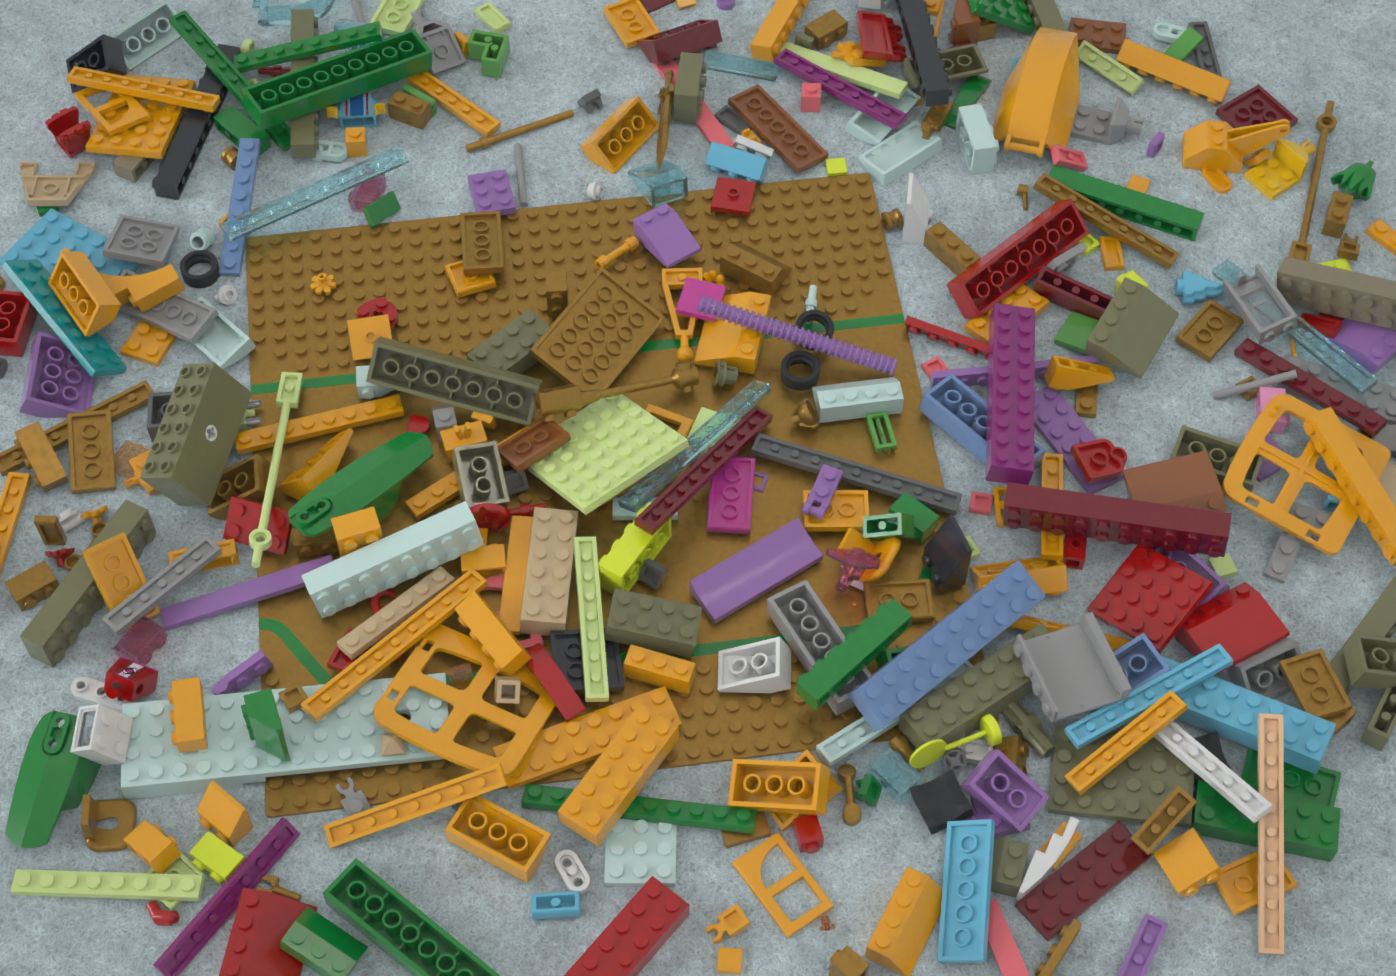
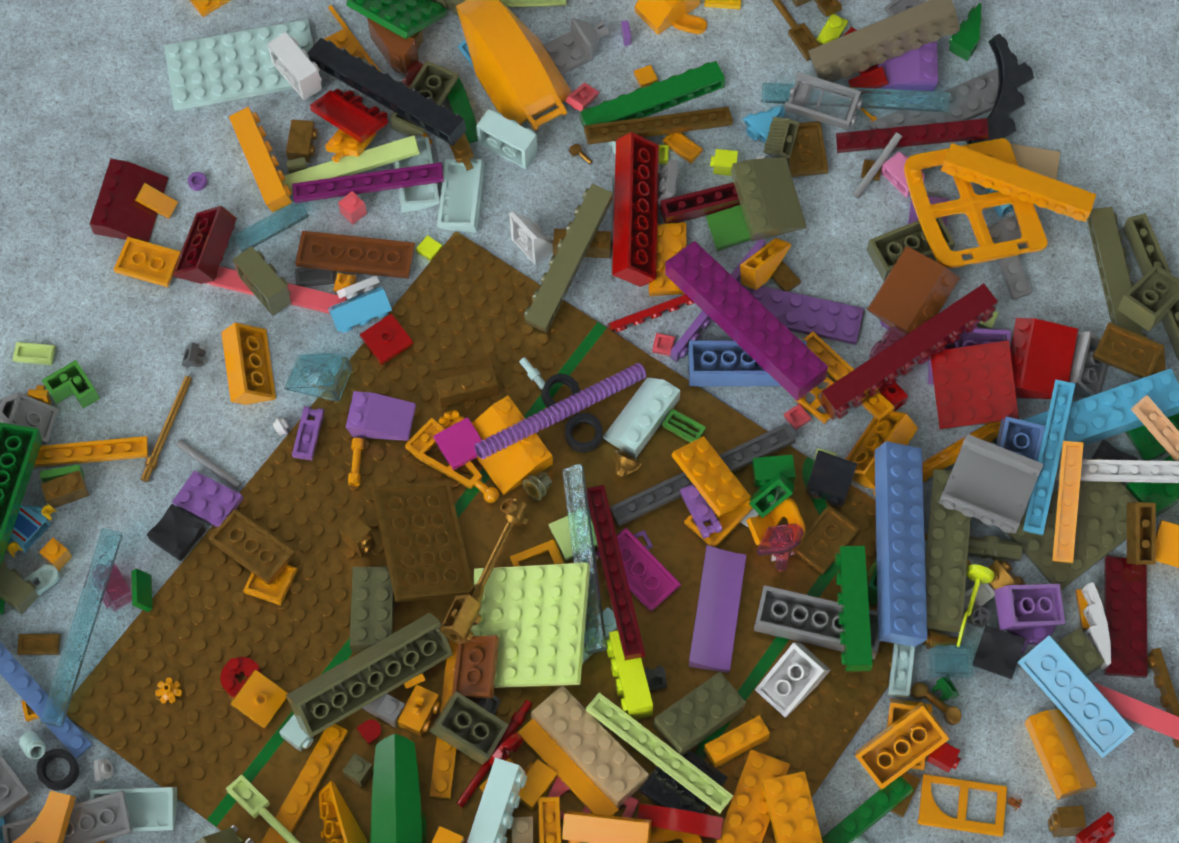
camera: 45 degrees left, 10 degrees up
(279, 184) = (39, 644): none -> pearl gold tile
(376, 435) = (358, 770): none -> olive brick
(446, 195) = (176, 532): none -> black brick
(606, 207) = (308, 433): none -> medium lavender plate
(666, 97) = (252, 307): pearl gold sword -> none
(857, 475) = (711, 476): none -> light orange plate
(892, 219) = (514, 255): pearl gold wheel -> none
(925, 245) = (569, 257): none -> olive brick
(1099, 459) = (842, 314): red plate -> none
(1196, 303) = (781, 137): none -> olive brick

